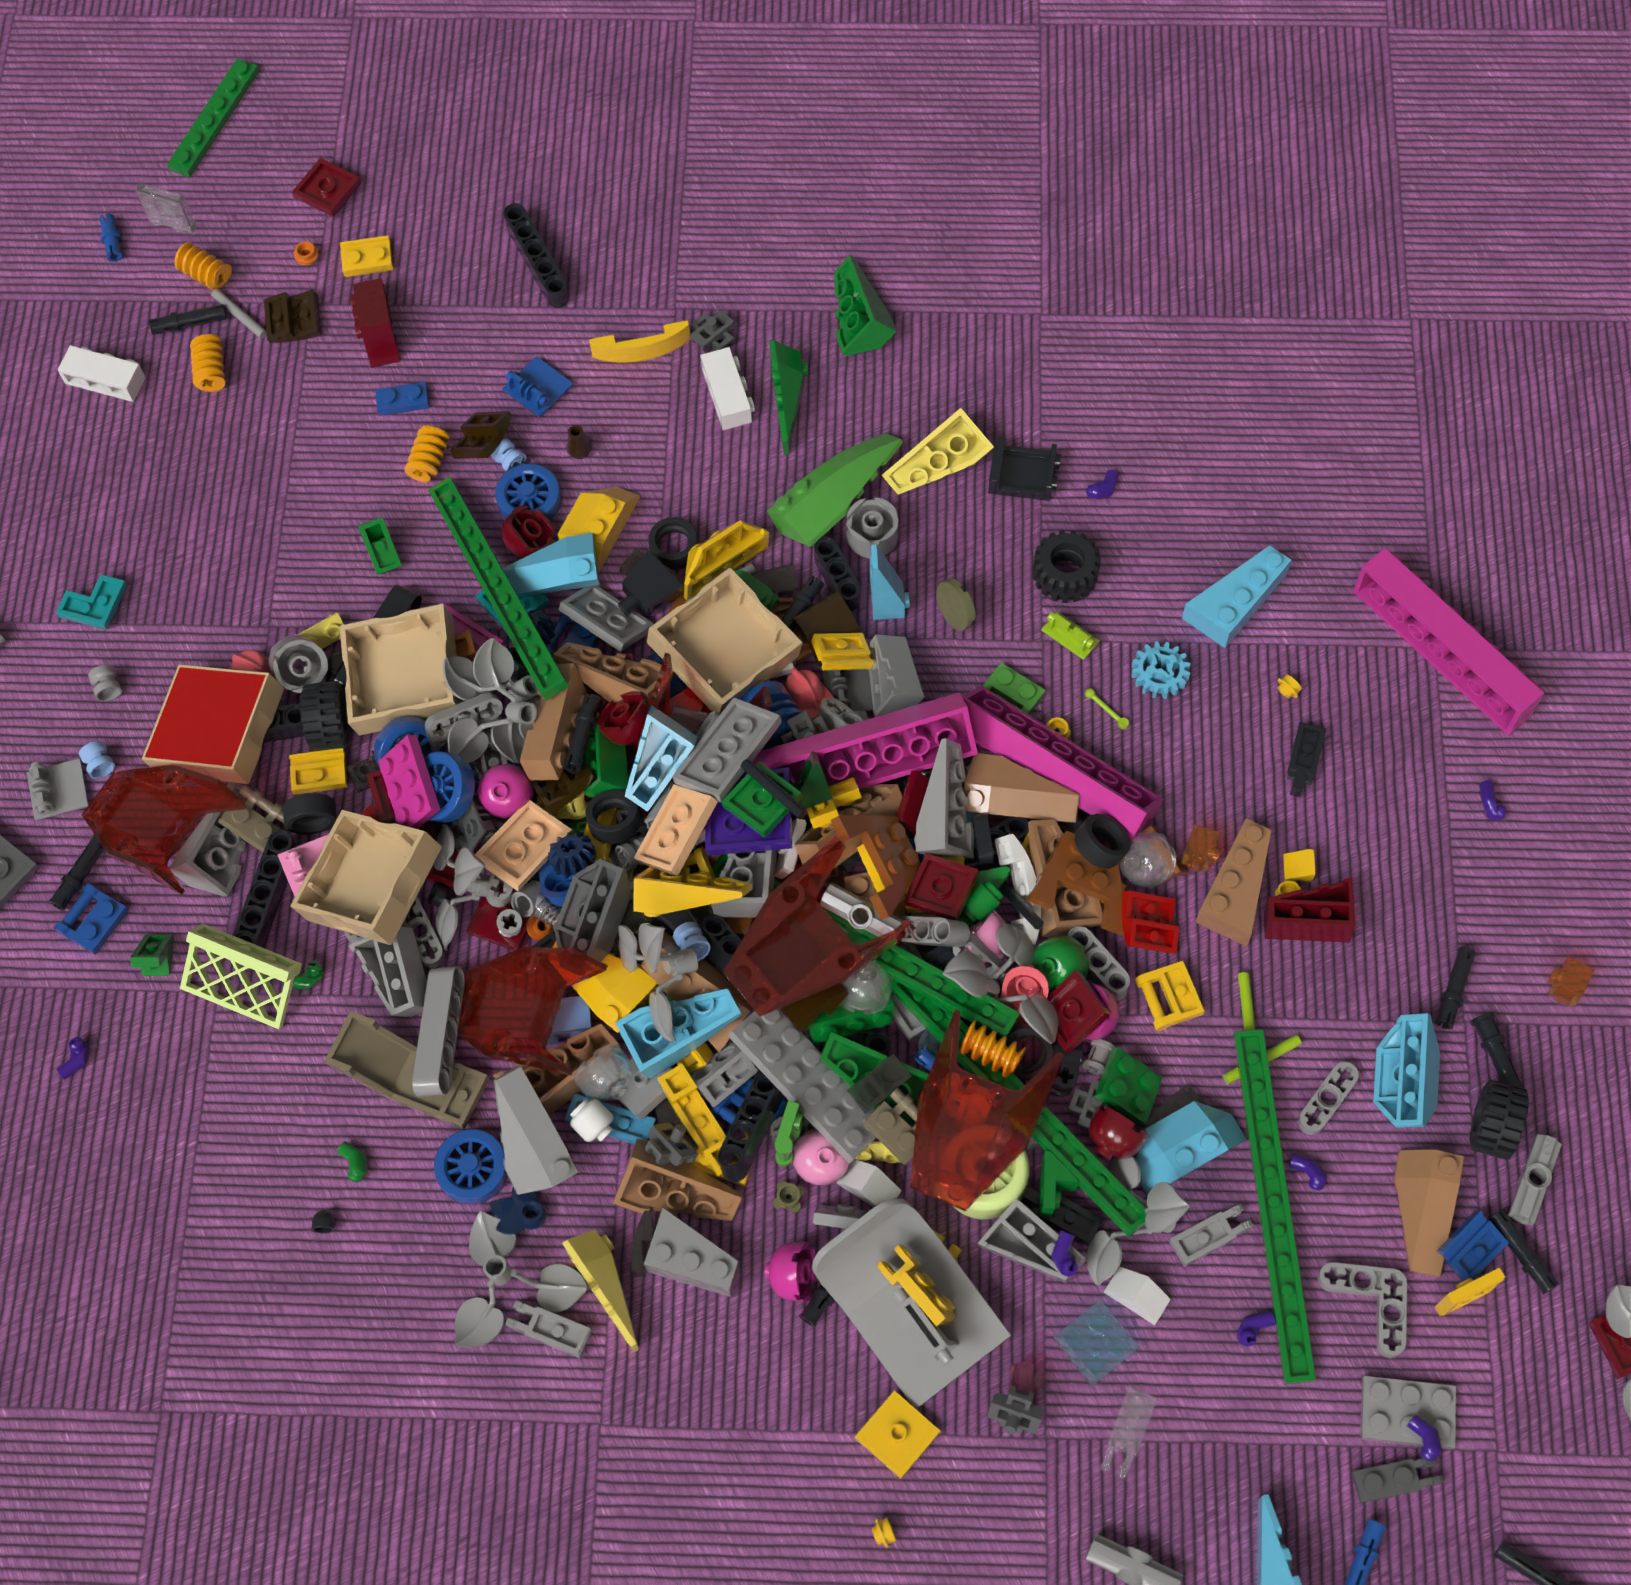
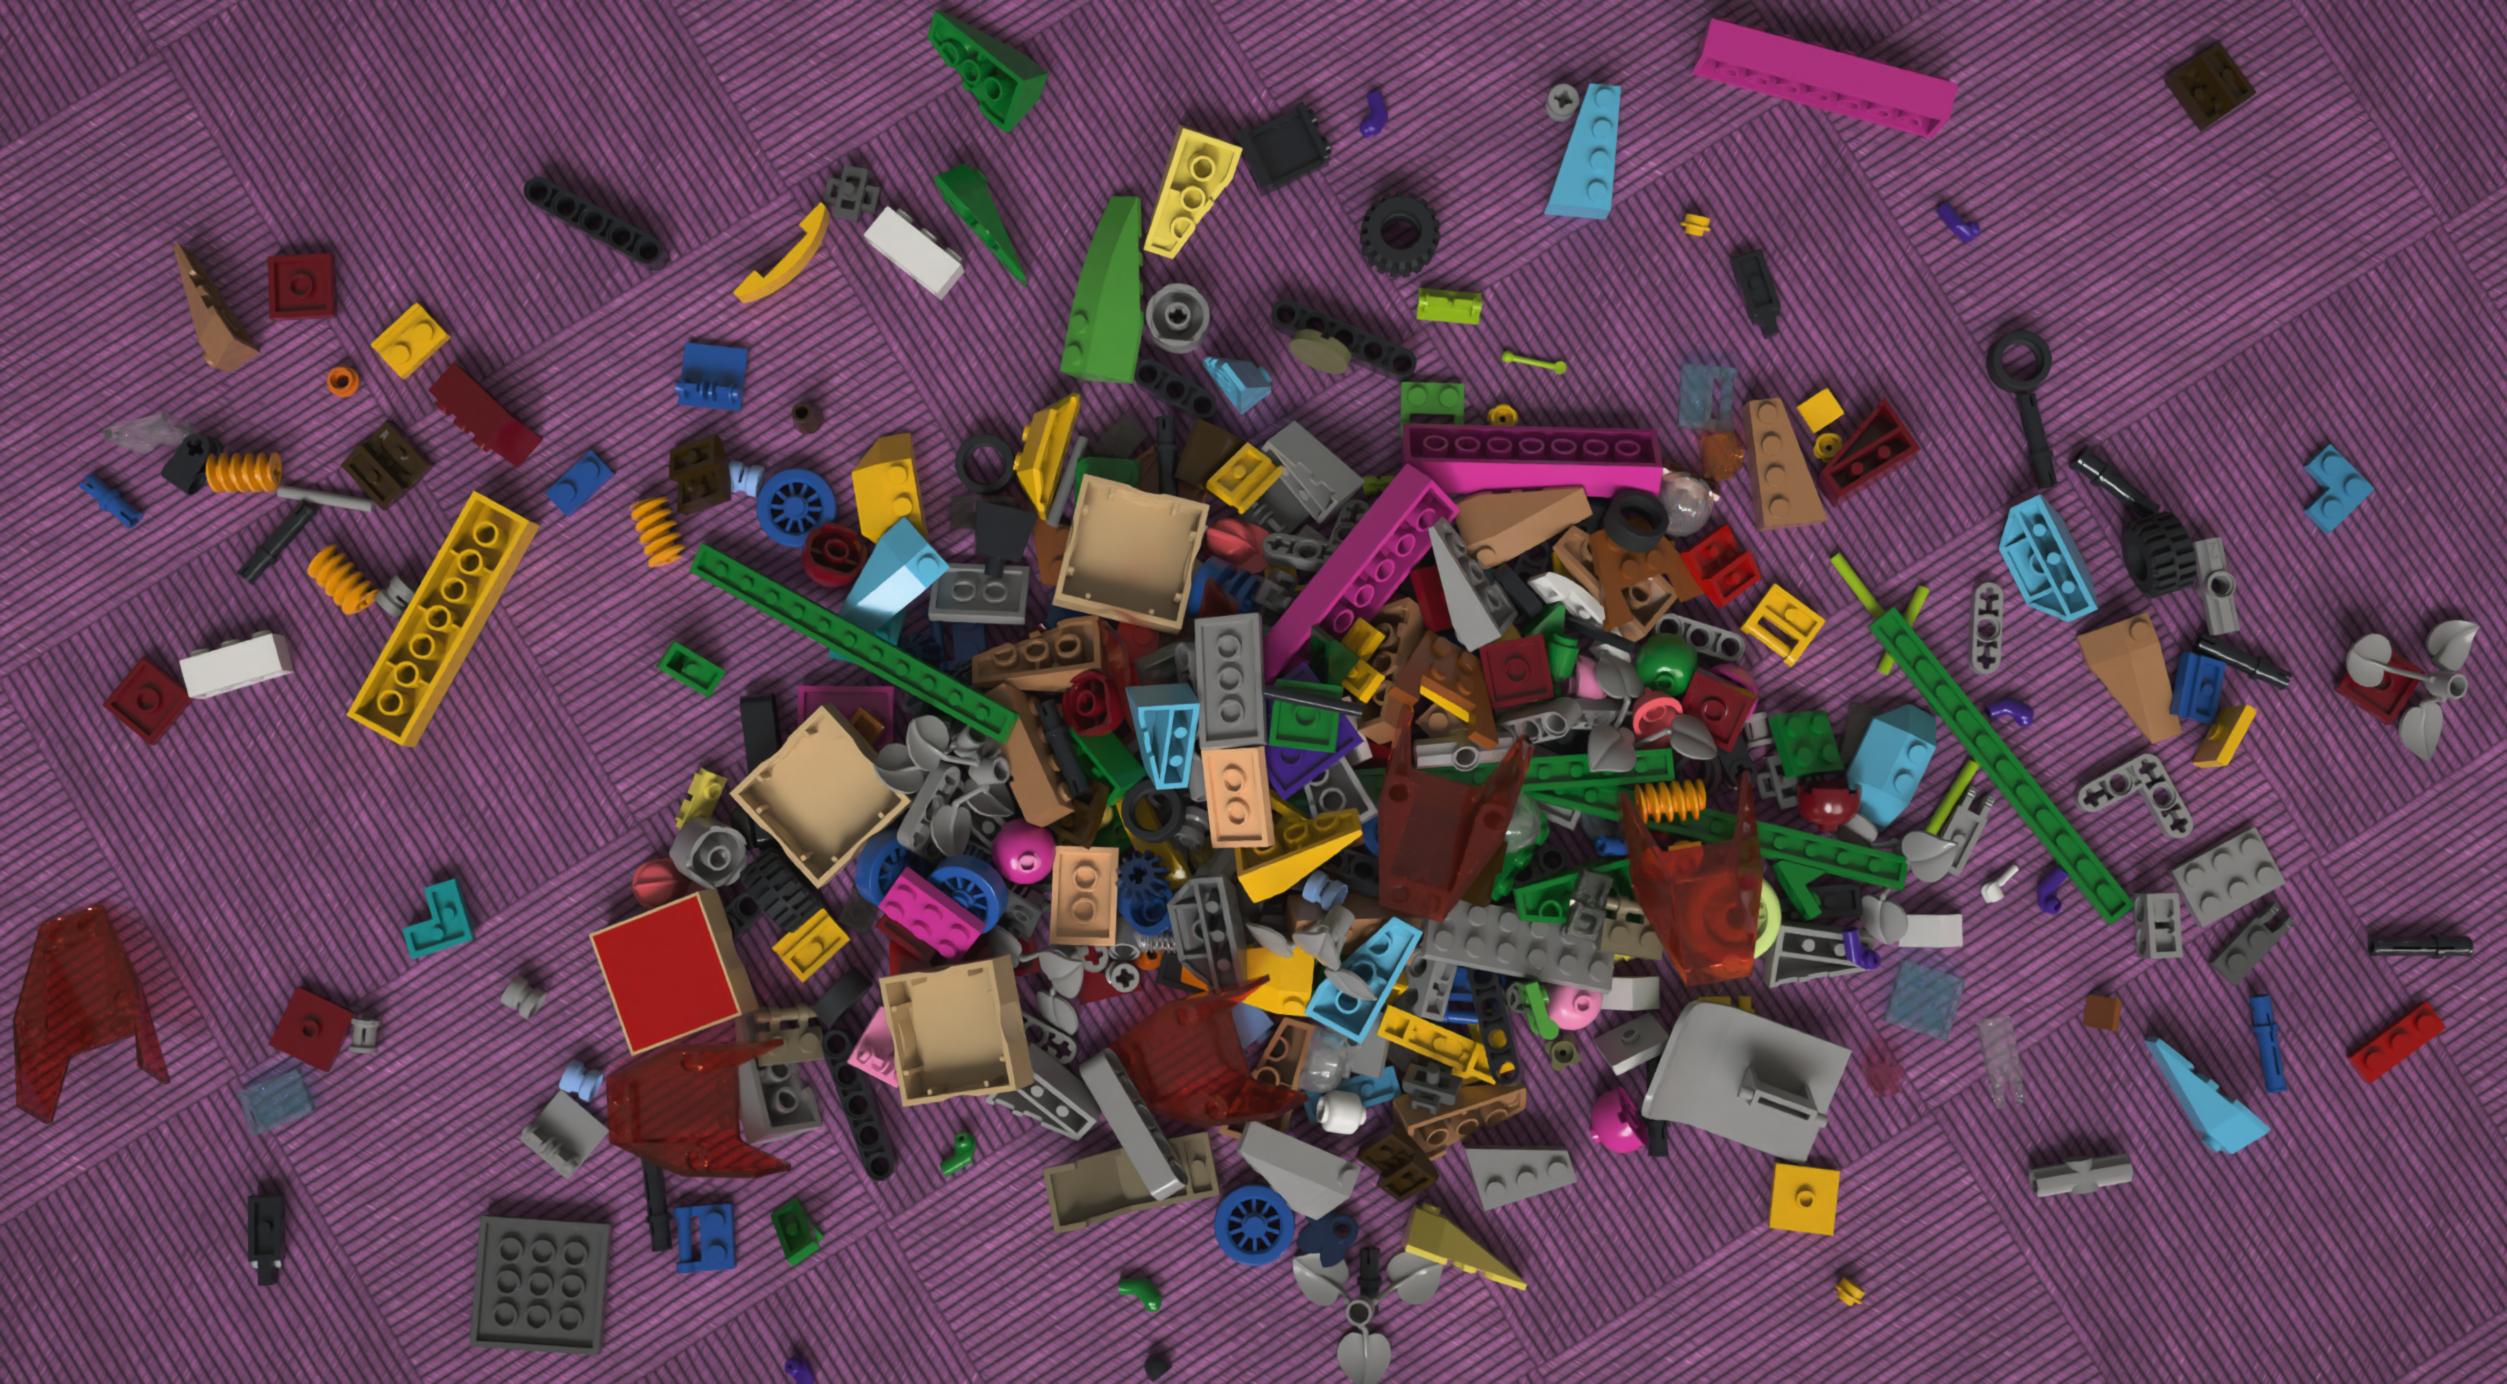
camera: 40 degrees left, 20 degrees up
(32, 362) = (148, 700): none -> dark red plate
(168, 242) = (188, 464): none -> black piece
(213, 118) = (103, 280): green plate -> none
(233, 392) = (396, 595): none -> light grey wheel
(239, 953) = (896, 1182): yellowish green fence -> none
(249, 421) = (443, 620): none -> yellow brick
(257, 176) = (215, 323): none -> medium nougat wedge
(438, 894) = (1027, 988): black hinge -> none
(525, 1264) = (1369, 1274): none -> black pin
(551, 1329) = (1436, 1319): light grey hinge -> none
(607, 1188) = (1399, 1162): none -> dark brown slope
(642, 1239) = (1461, 1181): clear smoke slope -> none
(919, 1287) = (1751, 1070): yellow plate -> none
(986, 620) = (1360, 339): none -> black beam
(1014, 1415) = (1899, 1114): dark grey piece -> none
(1160, 670) = (1552, 283): medium azure gear -> none
(1206, 1296) = (1992, 891): none -> white hand
(1212, 798) = (1696, 397): none -> clear light blue plate
(1212, 1209) = (1951, 797): none -> lime bar
(1235, 1449) = (2102, 1012): none -> dark orange slope
(1243, 543) = (1559, 109): none -> light grey wheel
(1324, 1405) = (2157, 925): none -> light grey brick
(1430, 1438) = (2264, 891): dark purple arm -> none
(1489, 907) = (2035, 344): none -> black tyre
(1569, 981) = (2137, 367): clear orange brick -> none

